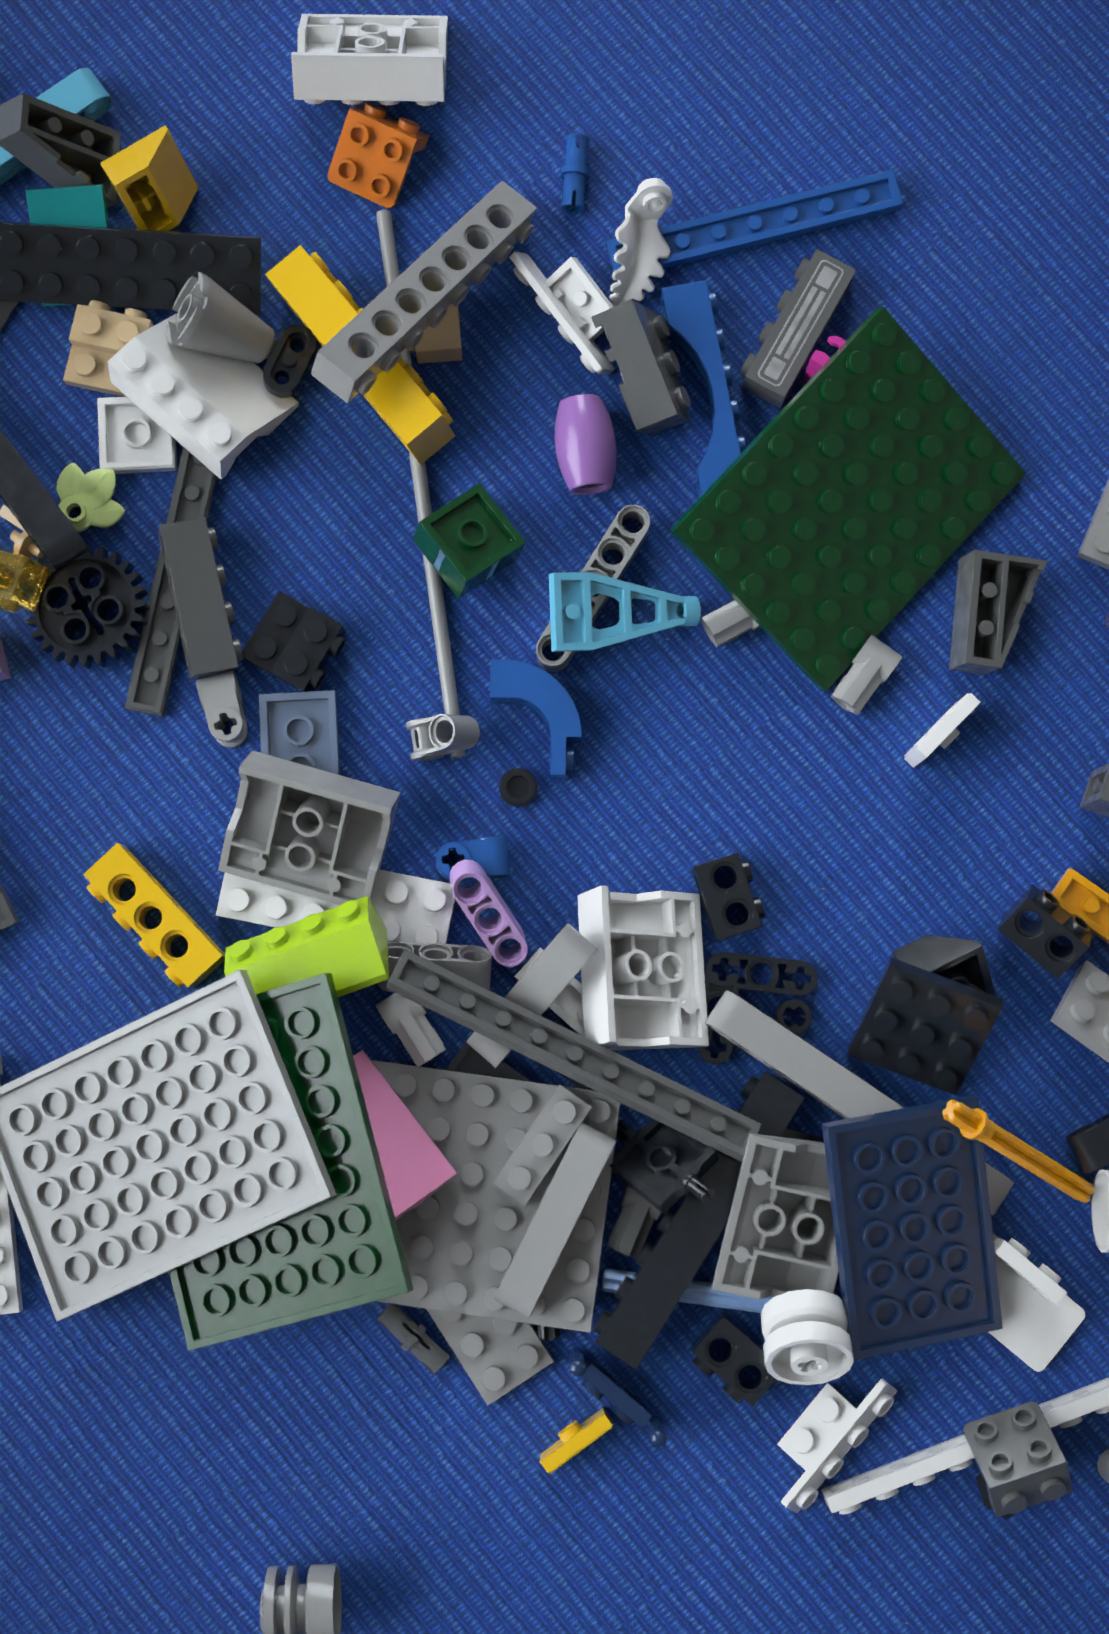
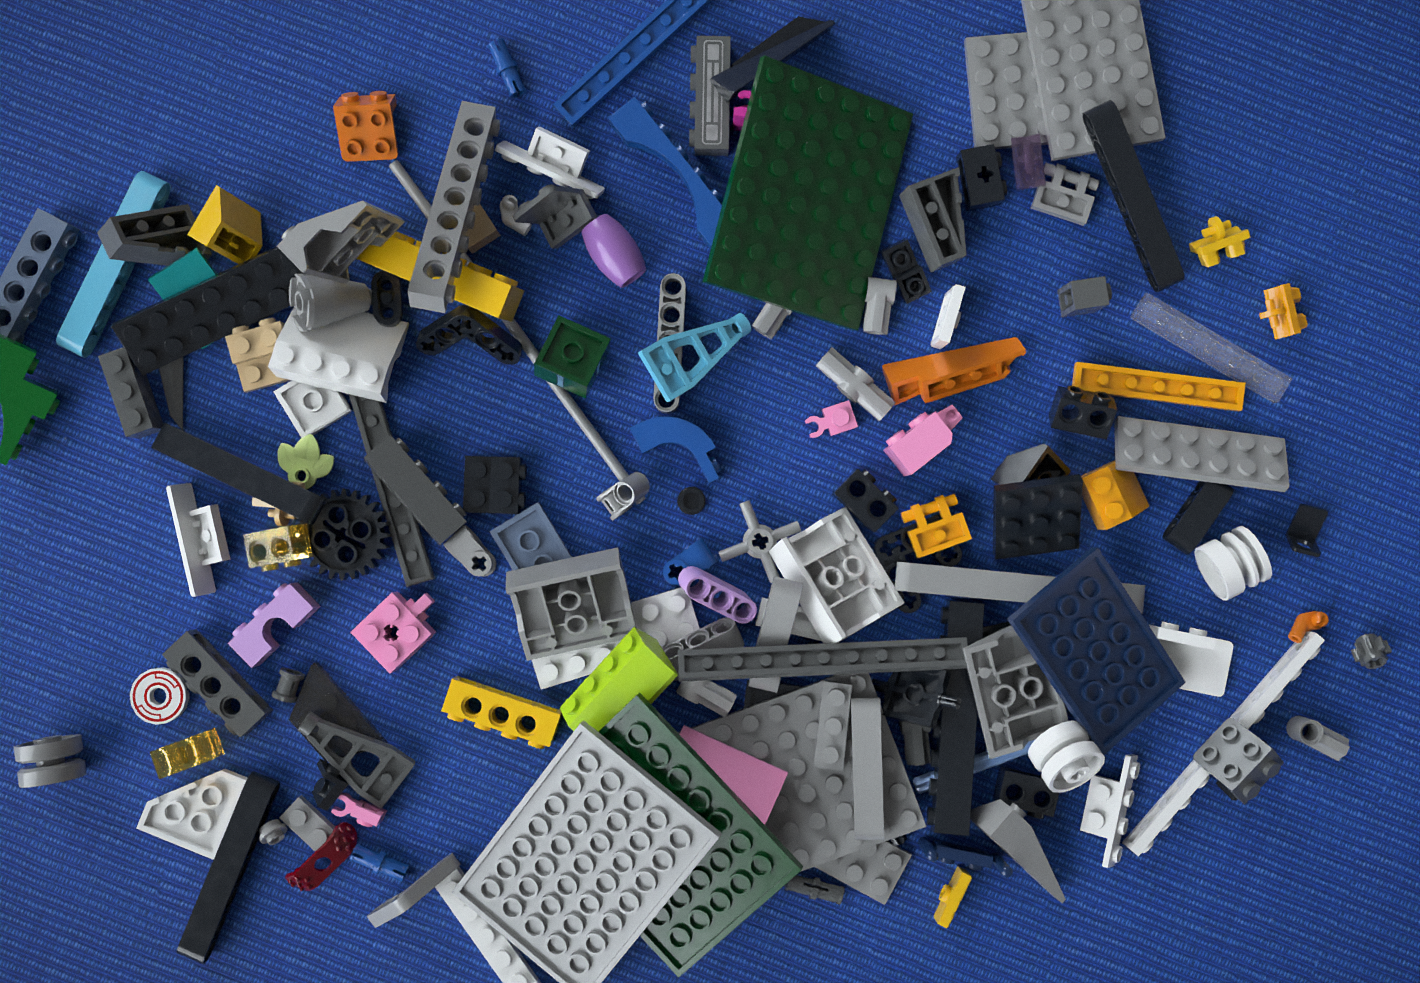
camera: 30 degrees left, 5 degrees up
(102, 763) = (412, 632): none -> bright pink hinge
(270, 247) = (335, 239): none -> light grey piece
(370, 59) = (327, 62): white piece -> none
(392, 486) = (501, 346): none -> black beam
(486, 343) = (508, 208): none -> white arm
(544, 363) = (559, 212): none -> dark grey bracket
(586, 870) = (754, 528): none -> light grey bar
(641, 242) = (577, 93): white plant -> none
(646, 366) = (626, 177): dark grey wedge -> none
(691, 1398) = (1017, 839): none -> light grey wedge
(744, 783) = (836, 419): none -> bright pink plate
(788, 753) = (855, 384): none -> light grey piece
(795, 984) = (938, 534): none -> light orange plate
(833, 860) = (923, 440): none -> bright pink hinge
(912, 799) = (951, 371): none -> orange wedge
(913, 312) = (779, 46): none -> black wedge
(920, 651) = (905, 270): none -> black slope
(976, 1125) = (1106, 566): light orange axle -> none
(1030, 1051) = (1112, 496): none -> light orange slope
(1054, 605) = (976, 192): none -> black brick

